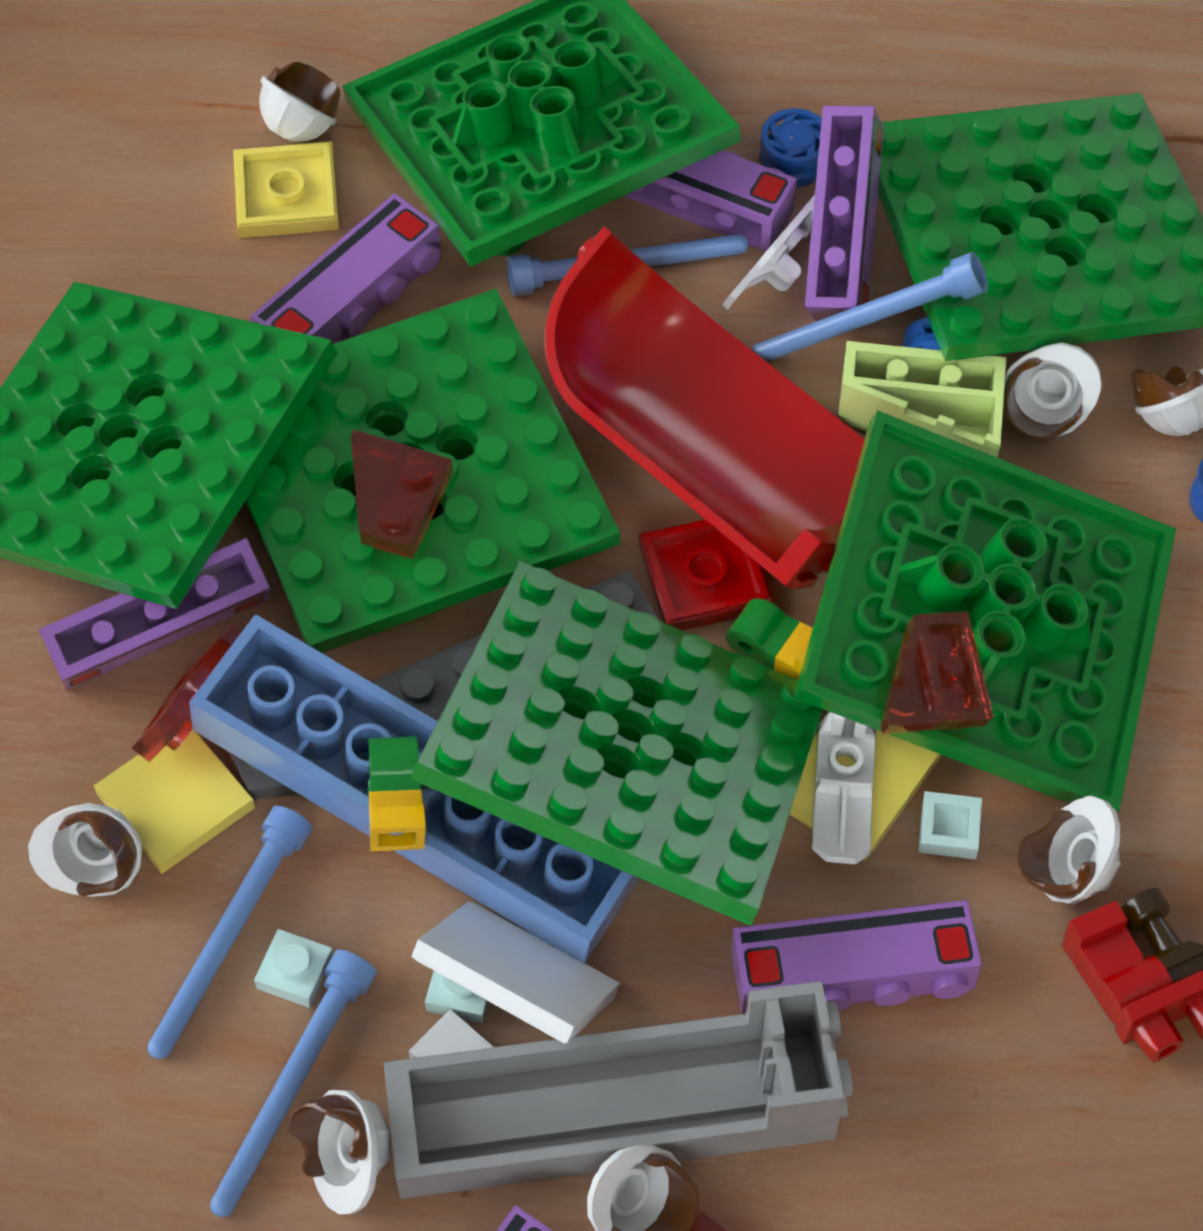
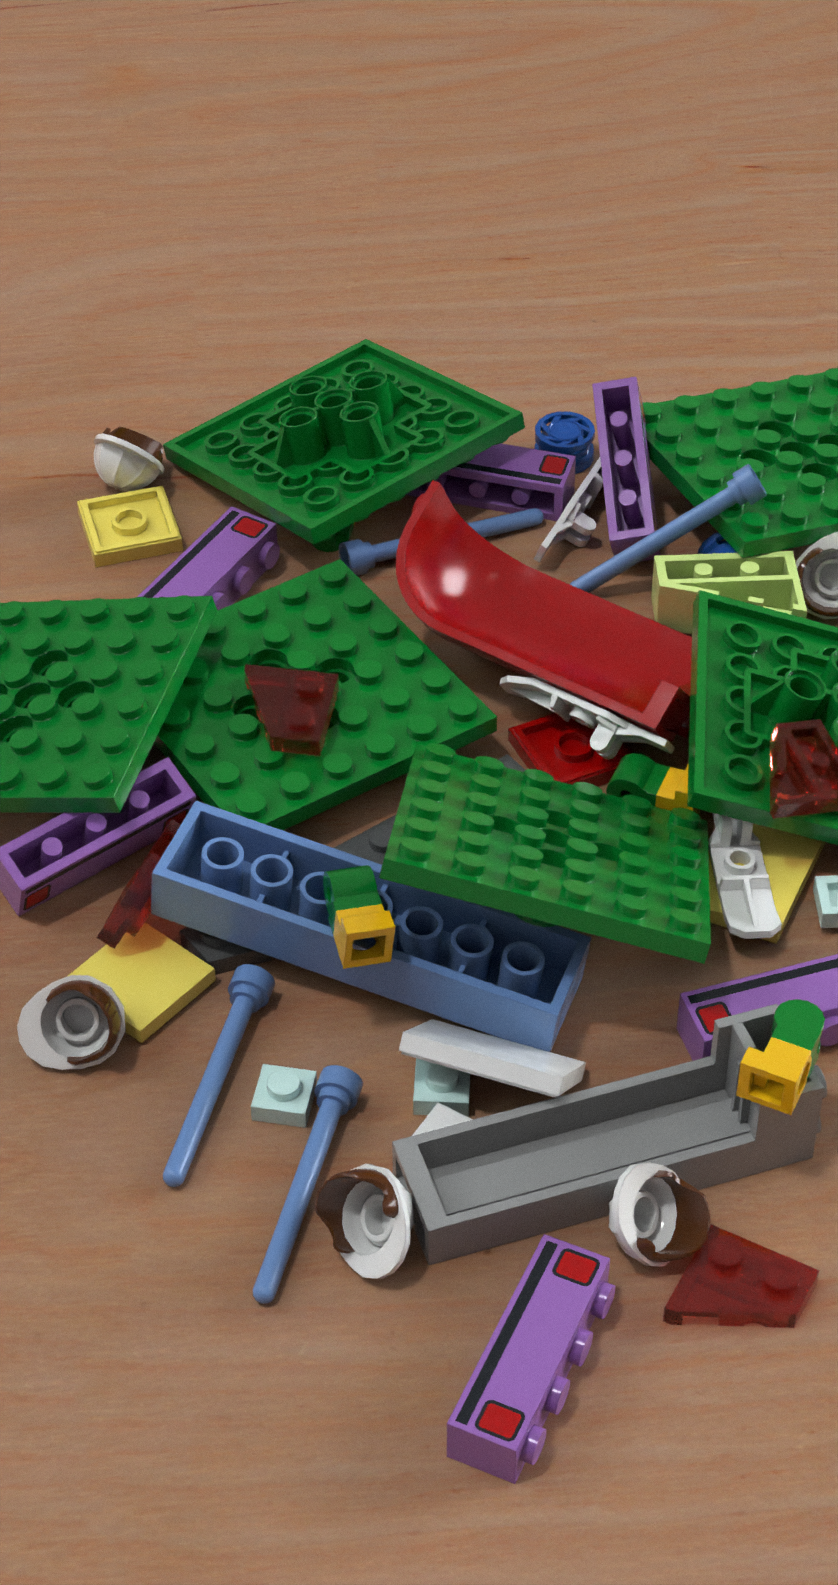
camera: 10 degrees left, 15 degrees down
(741, 569) = (610, 730): none -> white piece
(809, 1064) = (782, 1070): none -> yellow leg

